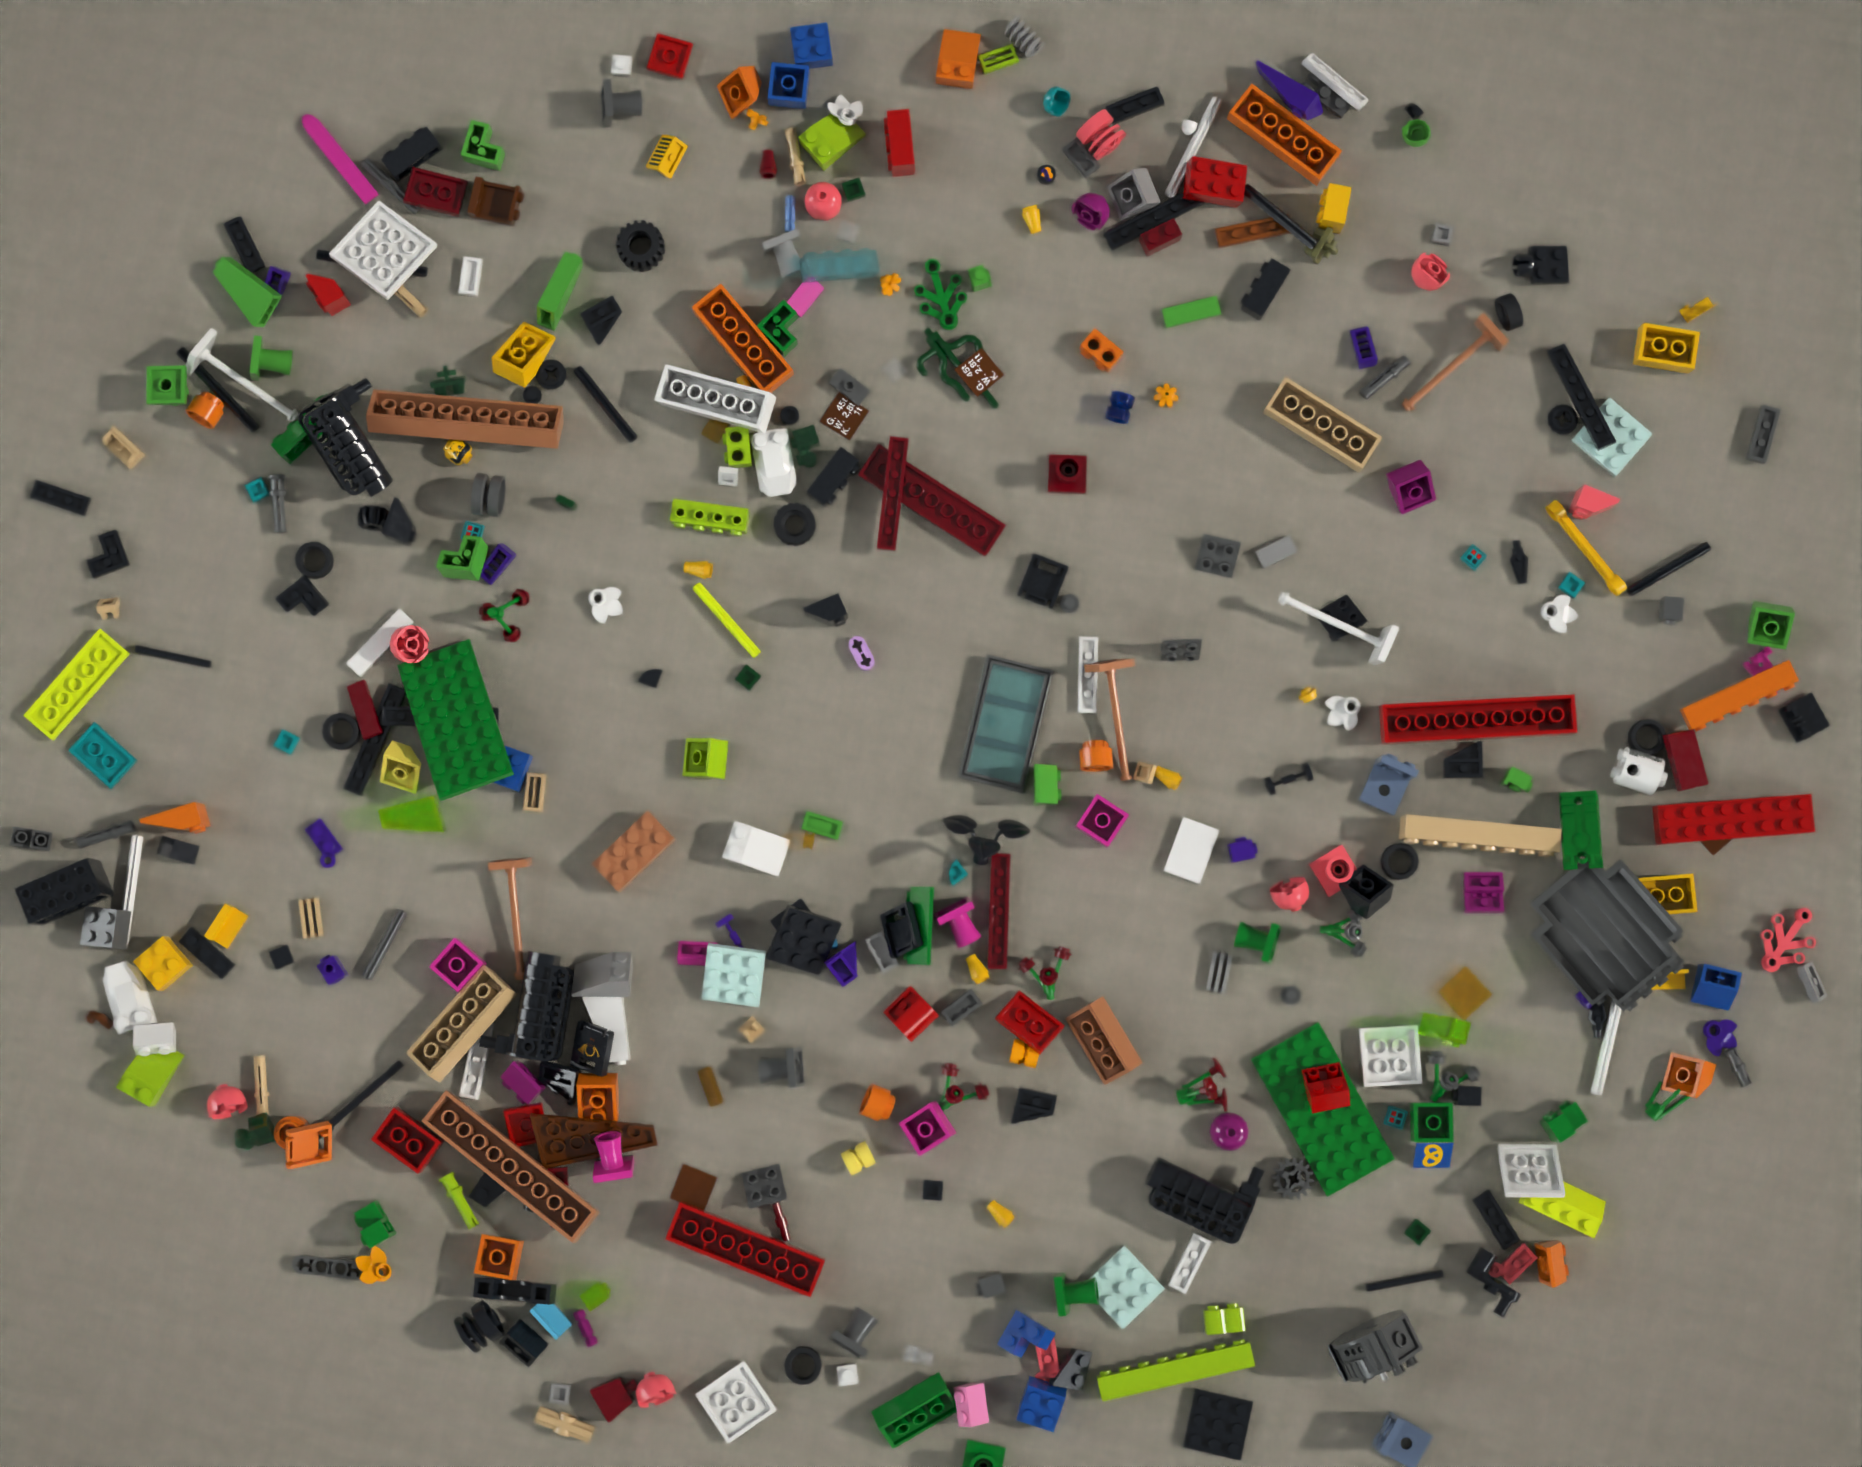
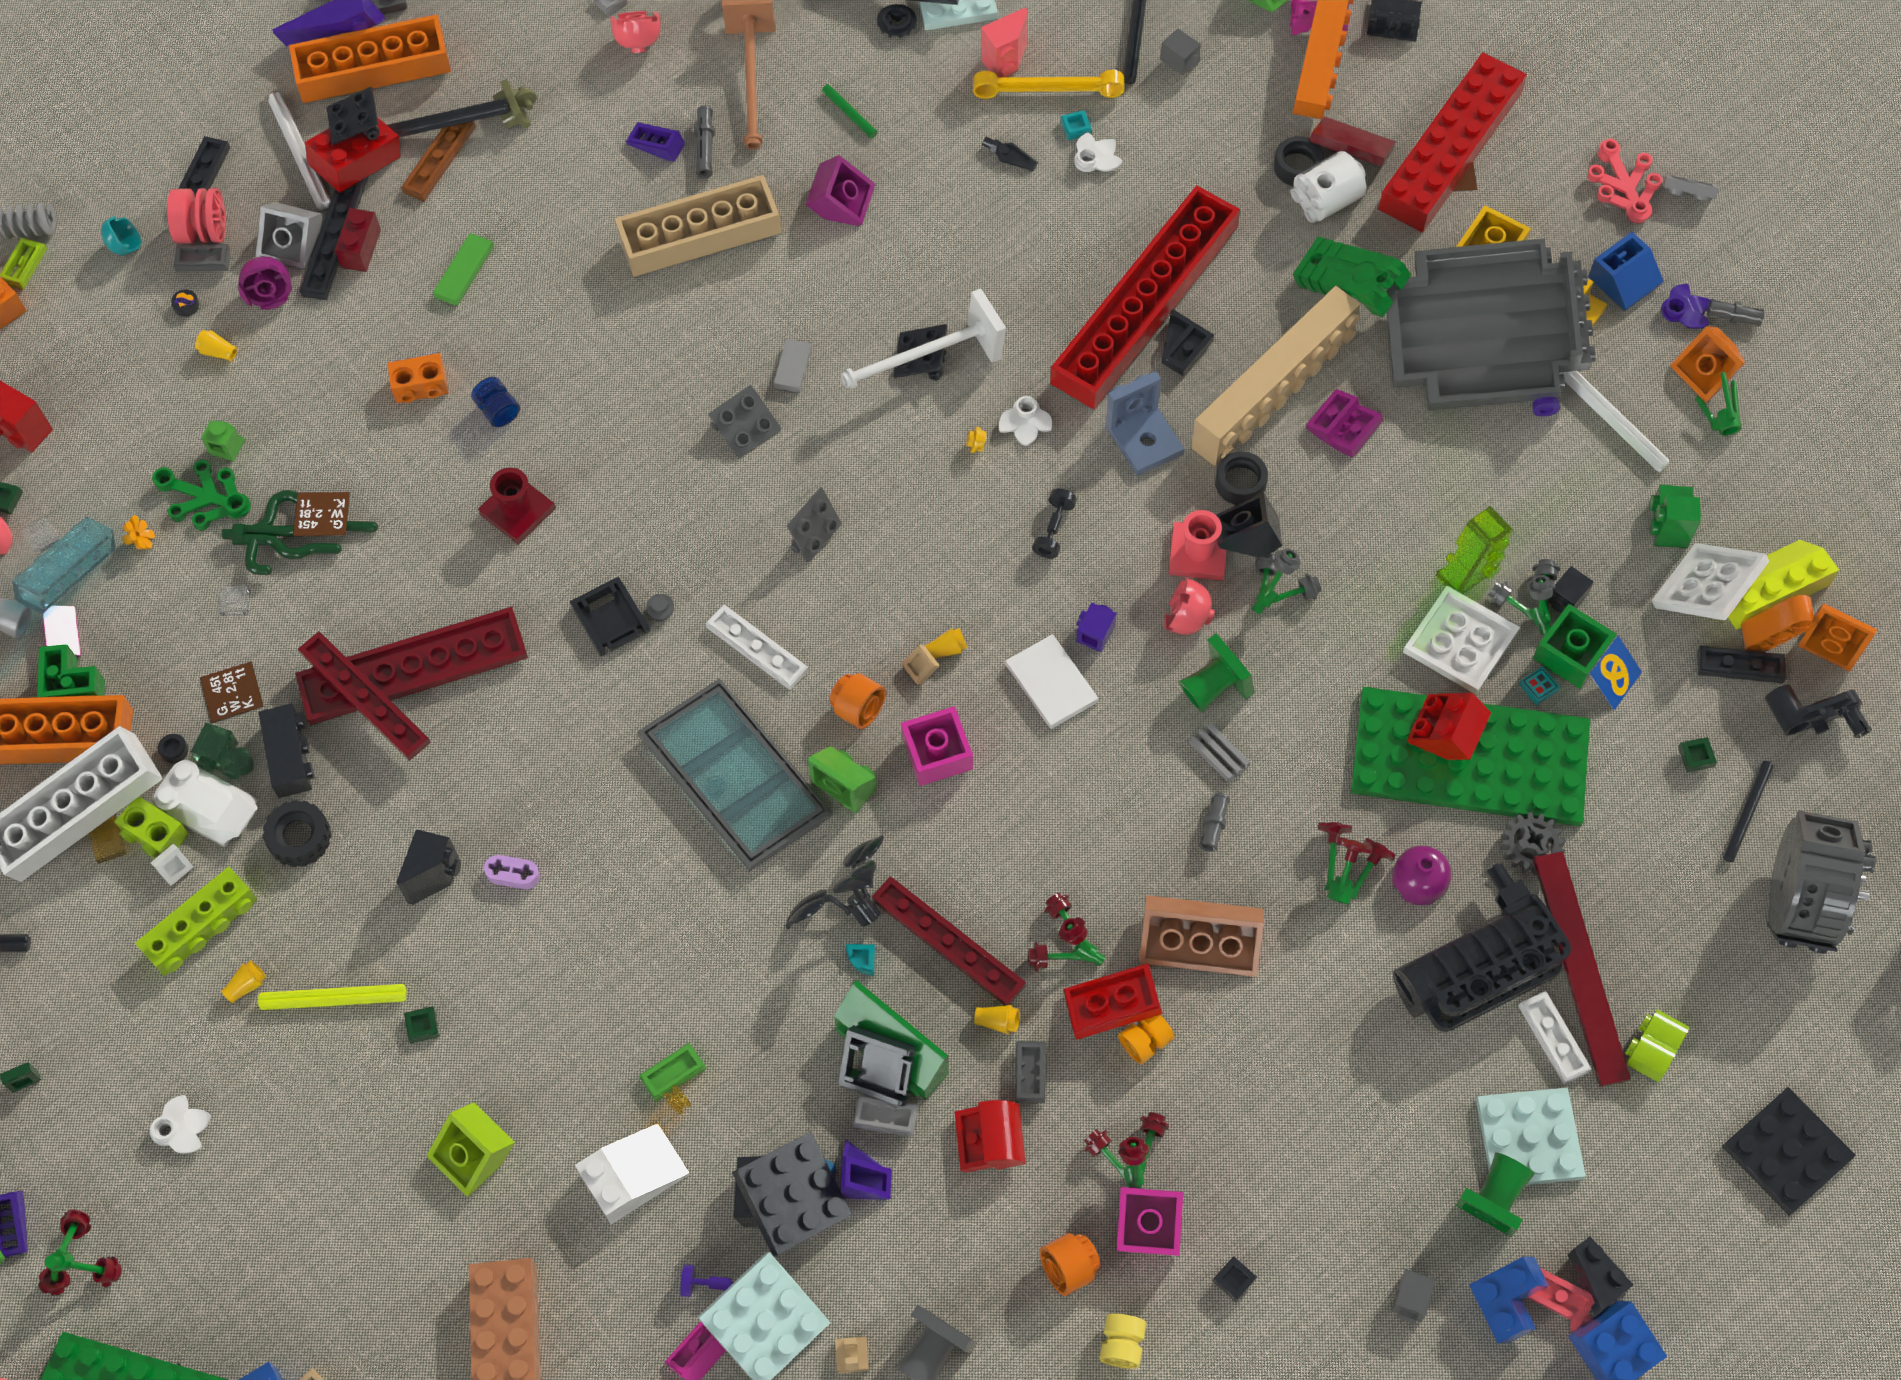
camera: 50 degrees left, 20 degrees down
(651, 677) = (316, 1141): black tile -> none
(849, 387) = (205, 660): dark grey plate -> none
(959, 921) = (924, 991): dark pink plant -> none
(1001, 1214) = (1327, 1217): yellow cone -> none
(1033, 1105) = (1218, 1076): black wing -> none
(1109, 668) = (768, 607): nougat tile -> none
(1166, 399) = (526, 354): light orange plant -> none
(1174, 1000) = (1214, 822): none -> dark grey pin
(1176, 1370) = (1683, 1151): lime brick -> none
(1189, 127) = (274, 138): white hinge -> none
(1229, 170) = (353, 117): none -> black hinge
(1237, 1252) = (1582, 971): none -> dark red tile
(1264, 288) = (507, 184): black brick -> none
(1290, 995) = (1307, 694): dark grey plate -> none
(1334, 207) = (486, 61): yellow brick -> none
(1464, 993) = (1442, 516): clear yellow tile -> none
(1473, 557) = (967, 190): teal tile -> none
(1475, 443) = (839, 101): none -> green bar
(1514, 1264) = (1810, 676): coral hinge -> none
(1517, 780) = (1244, 306): bright green brick -> none
(1530, 1226) = (1778, 624): none -> orange beam
(1597, 1017) = (1577, 408): black piece -> none

